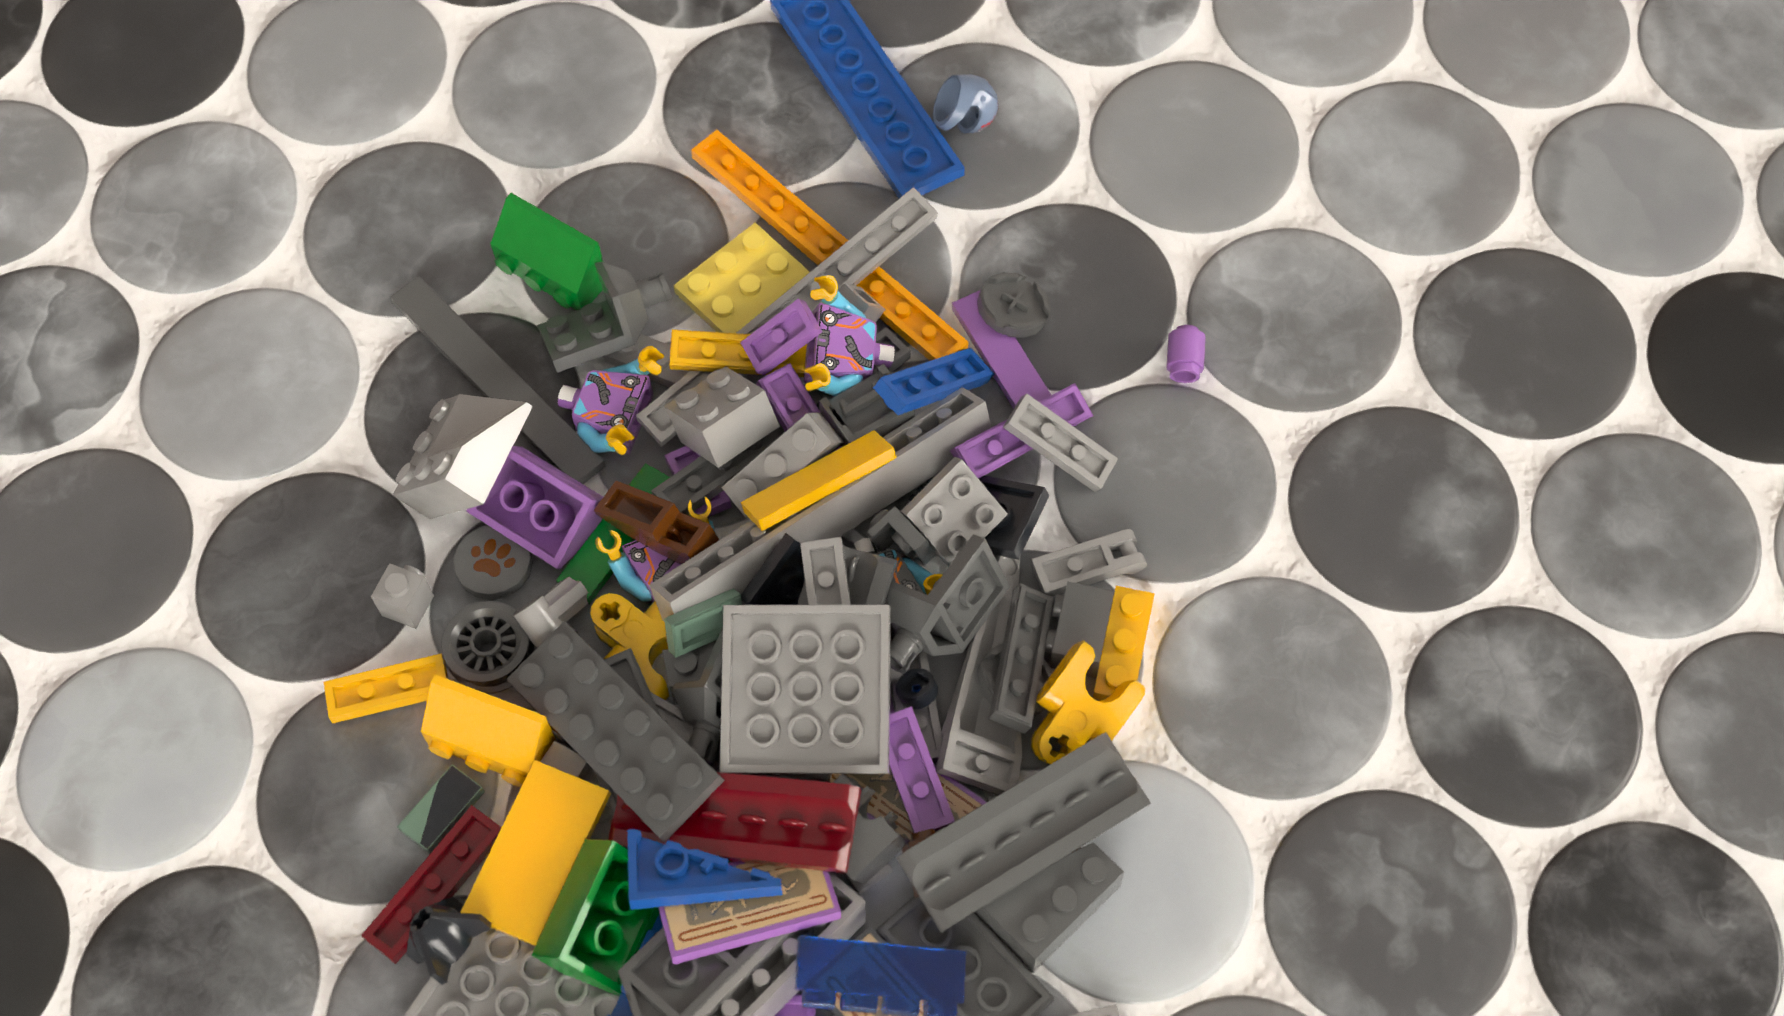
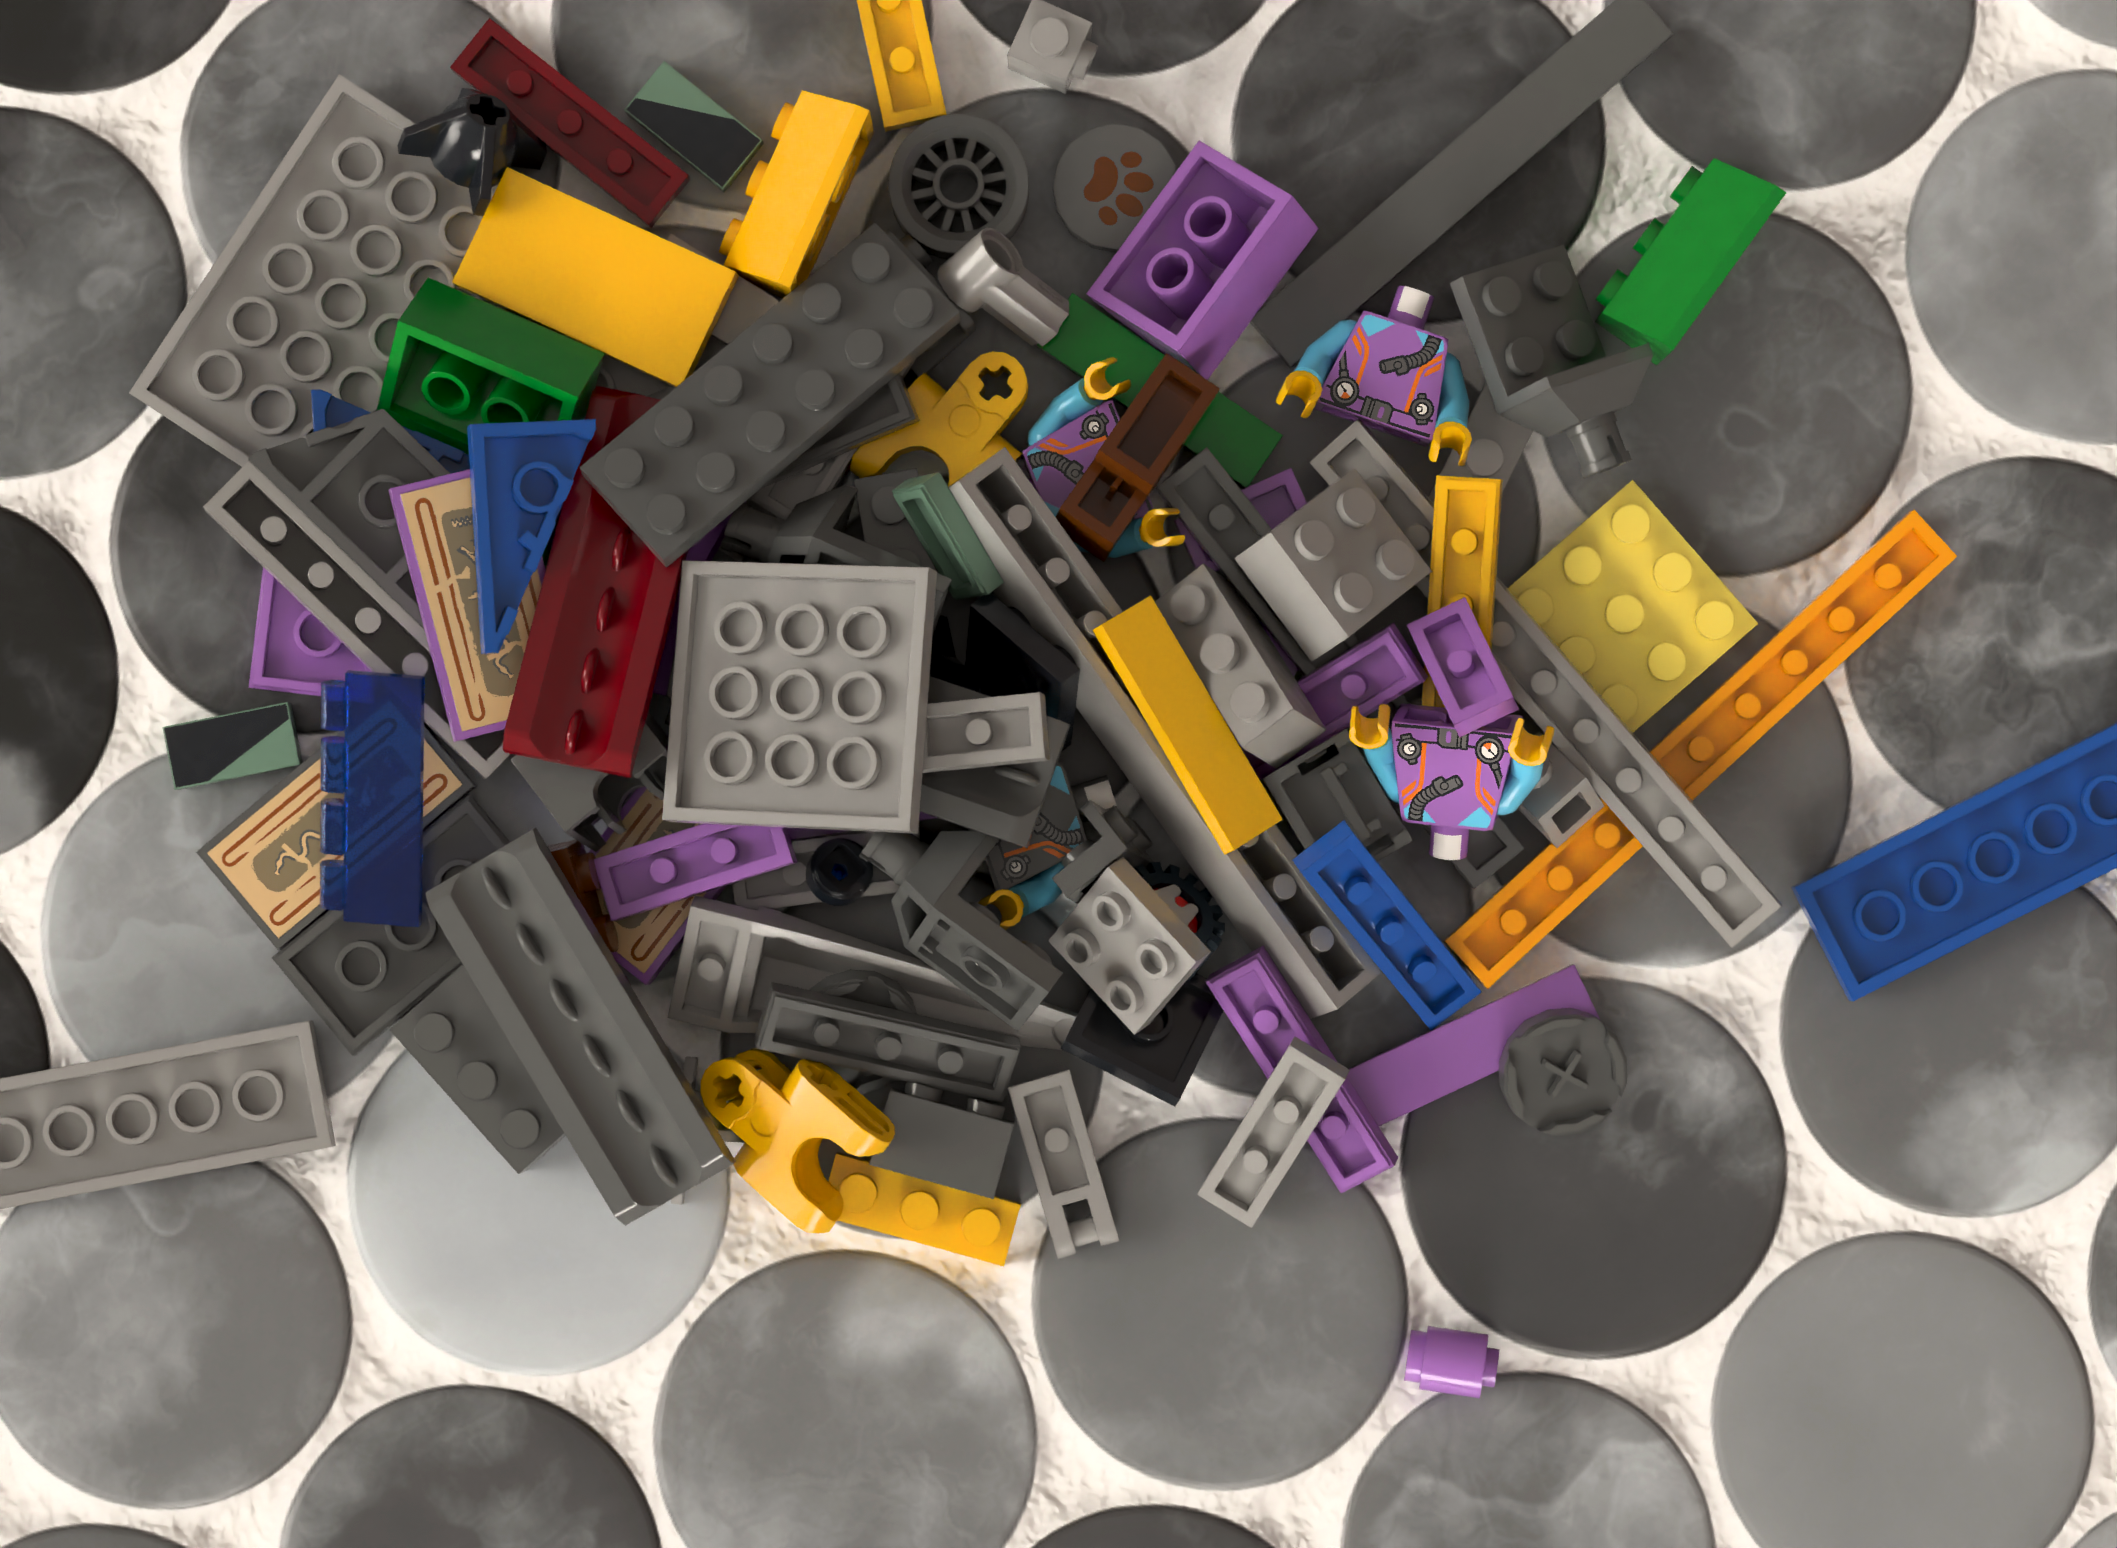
camera: 90 degrees right, 25 degrees up
(460, 454) = (1283, 131): light grey slope -> none
(967, 103) = (1993, 1022): sand blue helmet -> none

